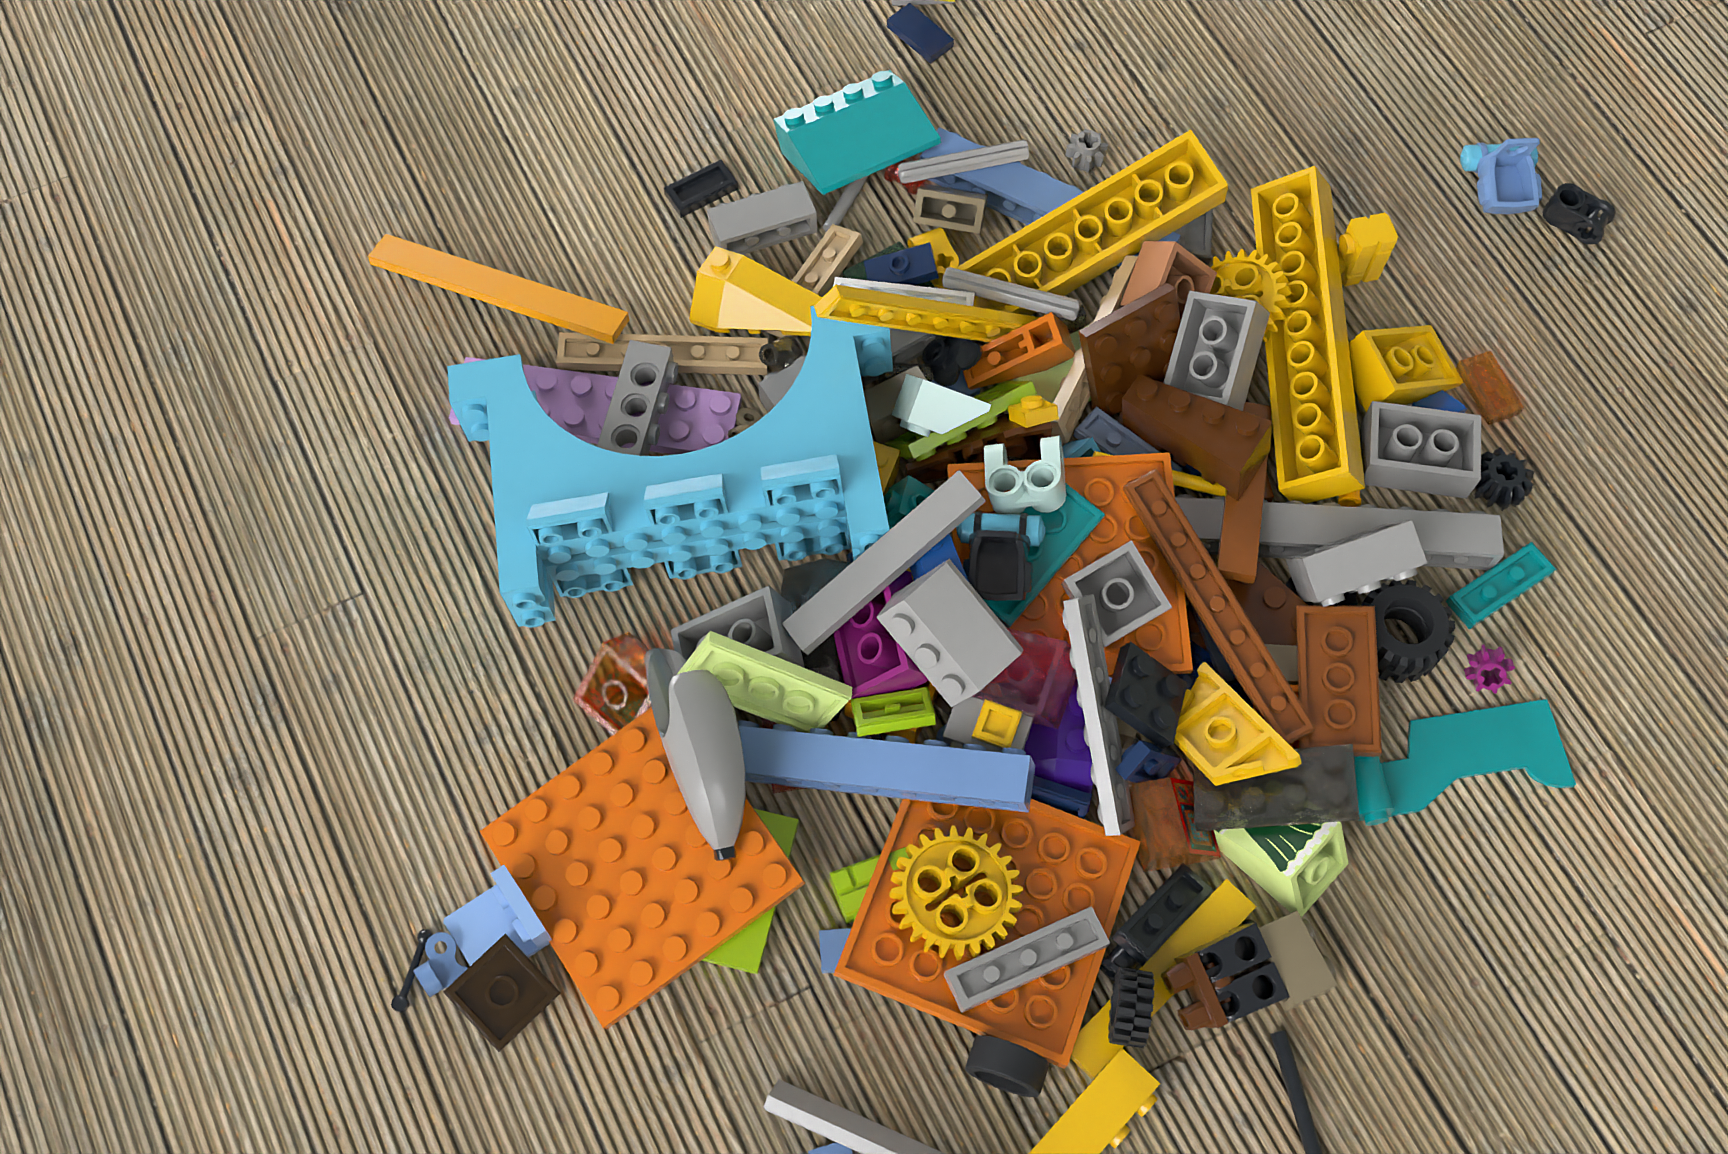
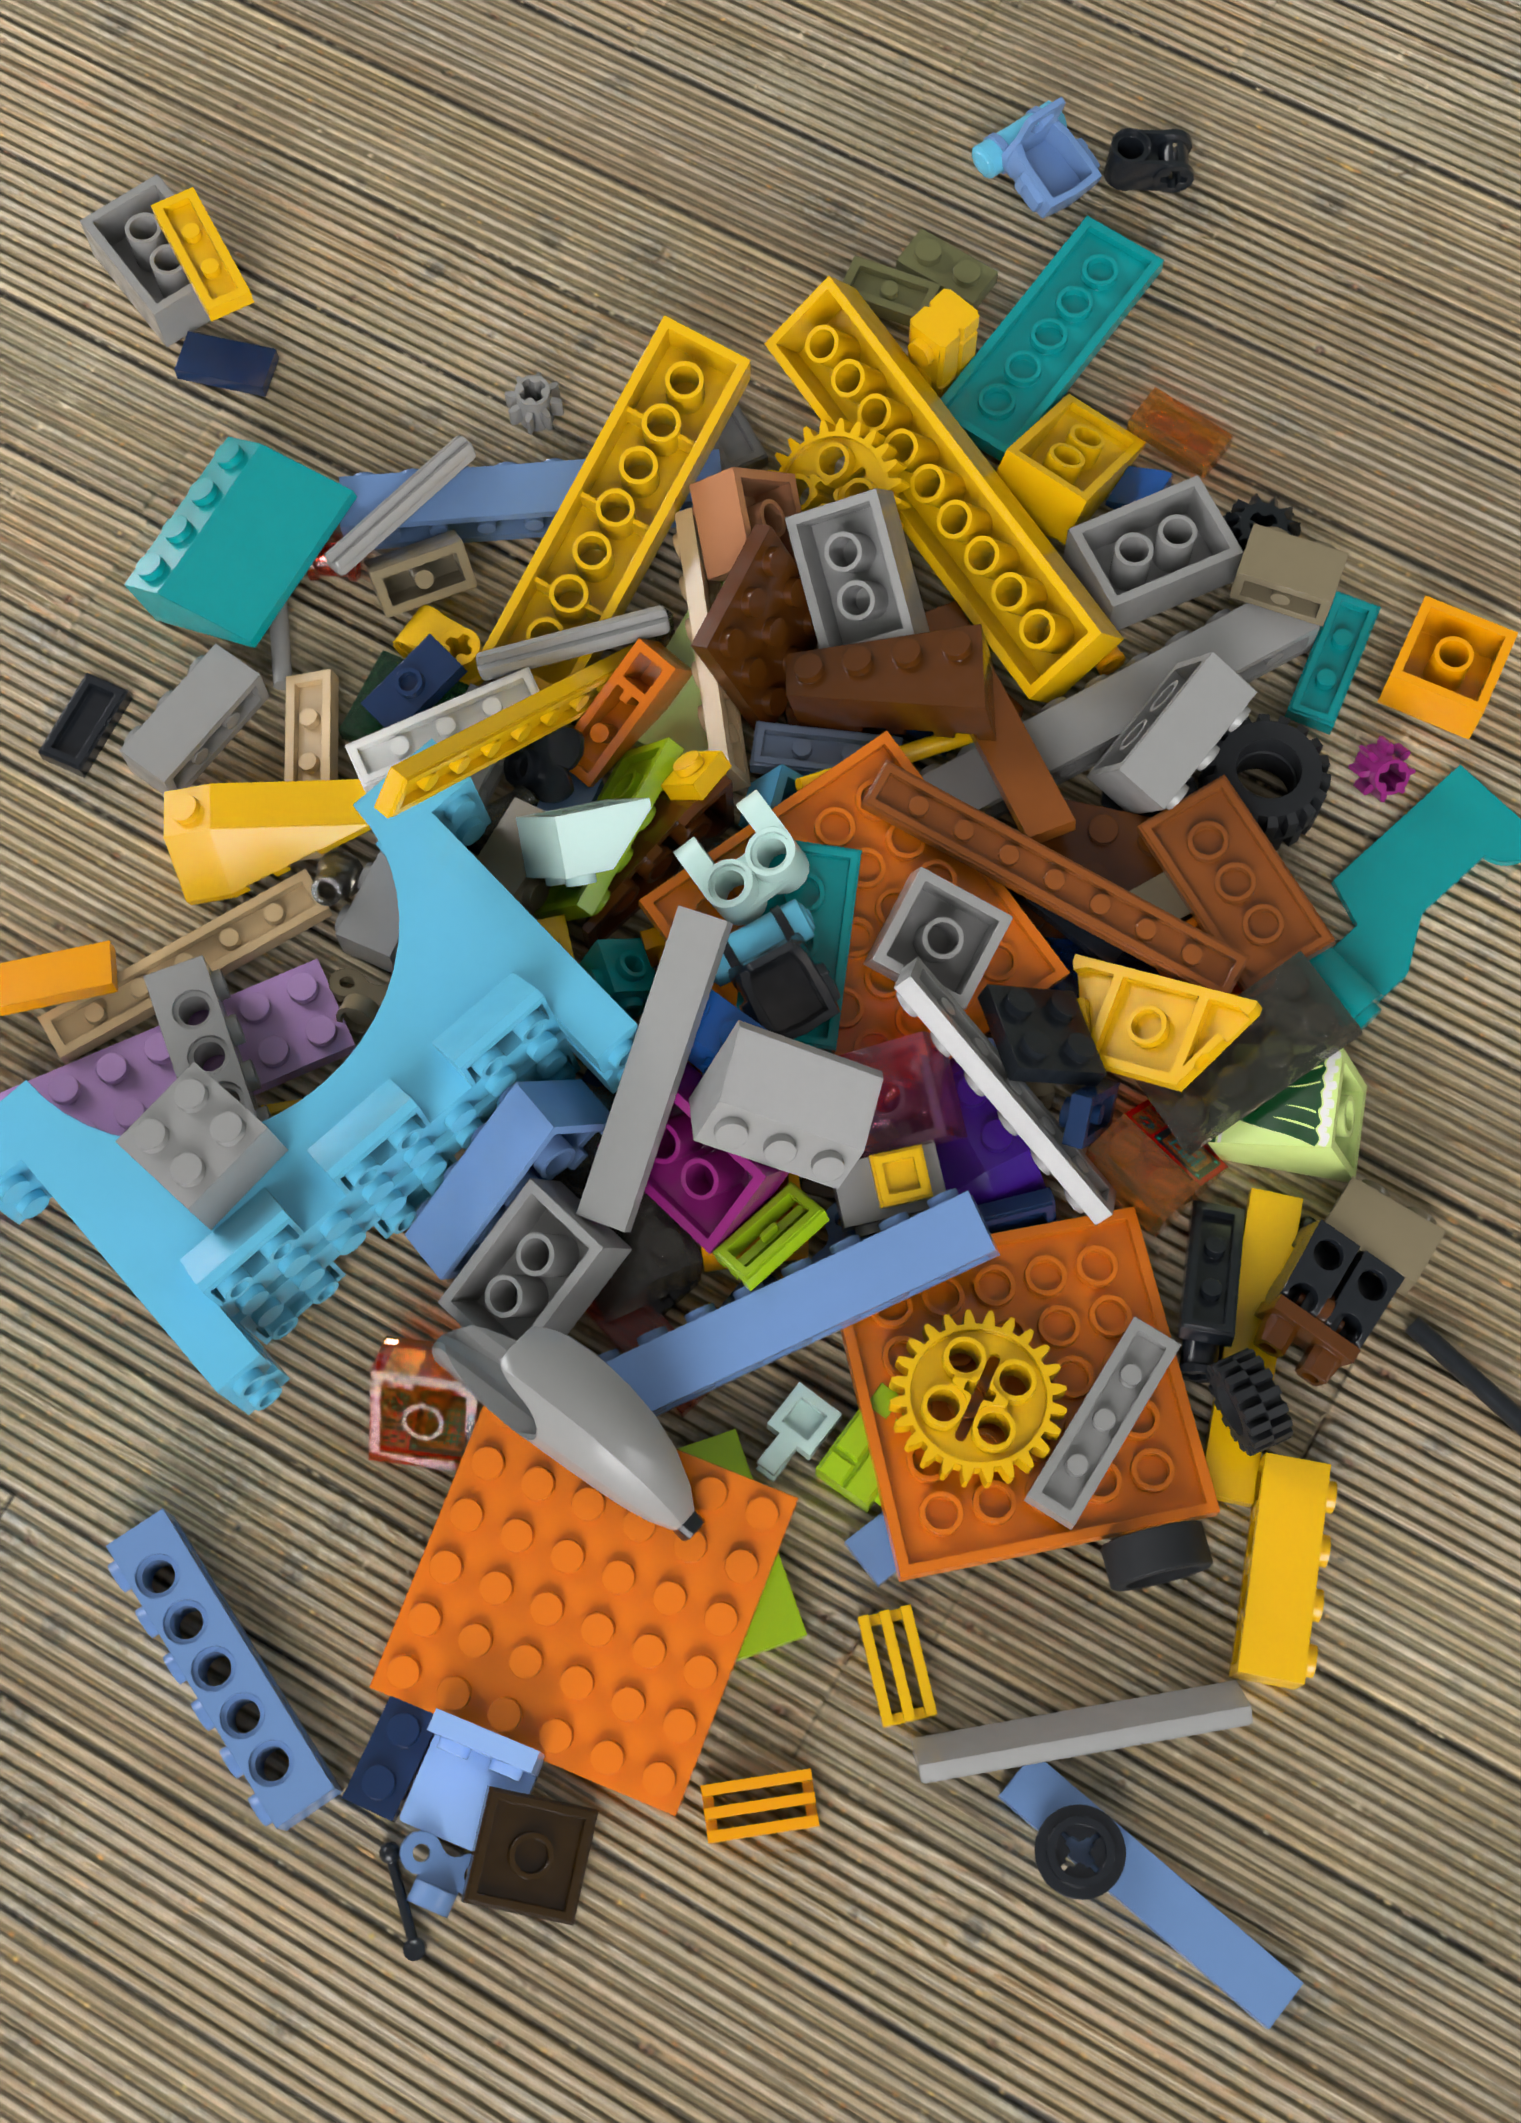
camera: 30 degrees left, 5 degrees up
(407, 861) = (308, 1781): none -> medium blue brick
(461, 882) = (391, 1759): none -> dark blue plate
(586, 445) = (202, 1145): none -> light grey brick
(628, 1042) = (713, 1813): none -> light orange tile
(770, 684) = (608, 1295): yellowish green tile -> none
(788, 560) = (528, 1136): none -> medium blue wedge
(812, 996) = (886, 1619): none -> yellow tile
(839, 843) = (800, 1426): none -> light aqua plate
(1351, 199) = (890, 291): none -> olive plate
(1402, 208) = (947, 265): none -> olive plate
(1443, 282) = (1050, 335): none -> teal plate
(1501, 509) = (1289, 574): none -> dark tan brick
(1576, 630) = (1447, 667): none -> light orange brick

